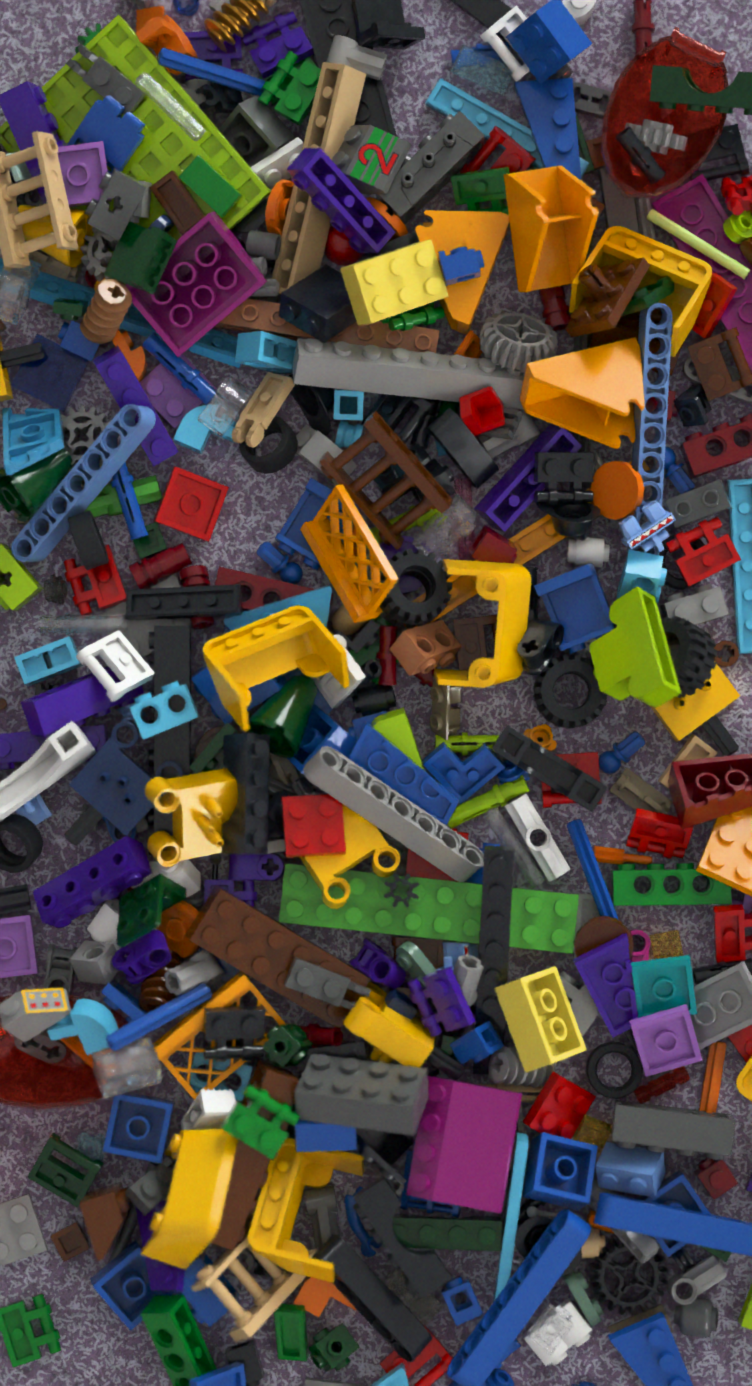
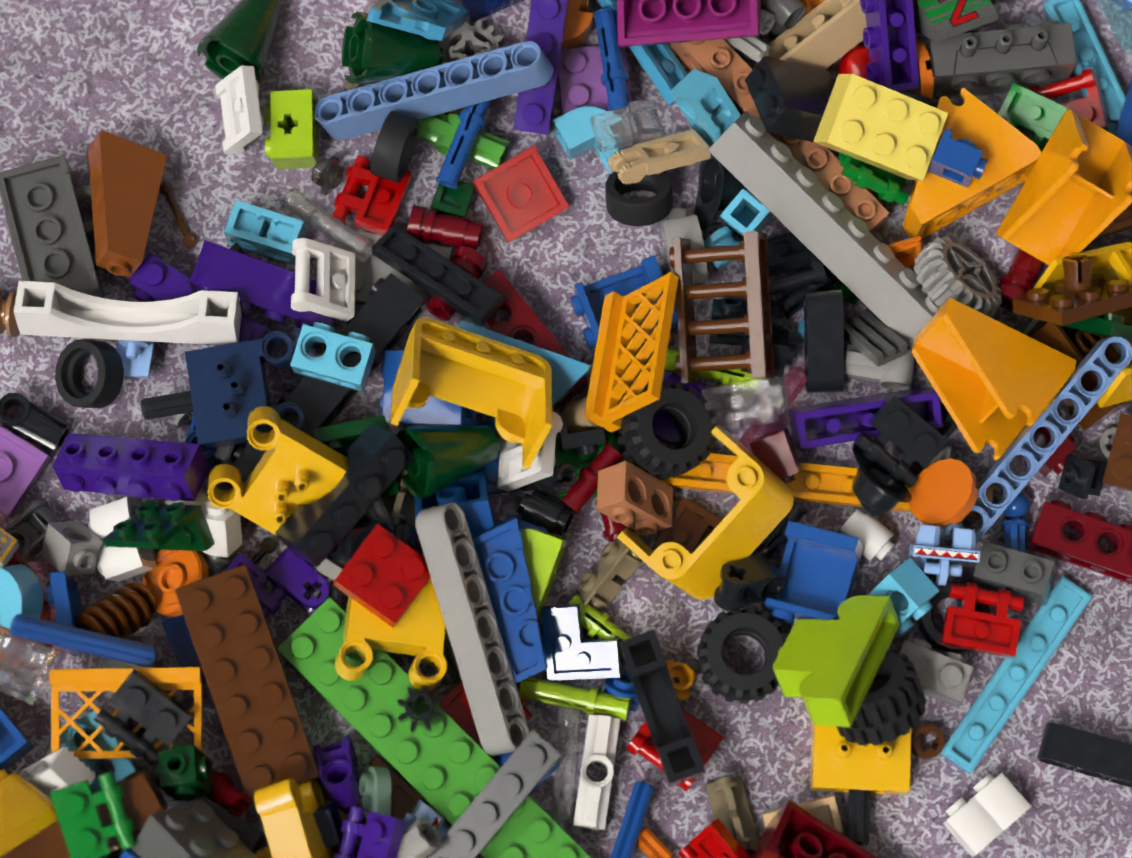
camera: 40 degrees right, 10 degrees down
(143, 956) = (113, 574): dark purple piece -> none
(198, 970) = (162, 631): light grey piece -> none
(289, 571) = (559, 311): blue axle -> none
(322, 983) = (267, 737): dark grey hinge -> none
(482, 410) = (870, 317): red panel -> none
(611, 760) = (729, 757): blue axle -> none

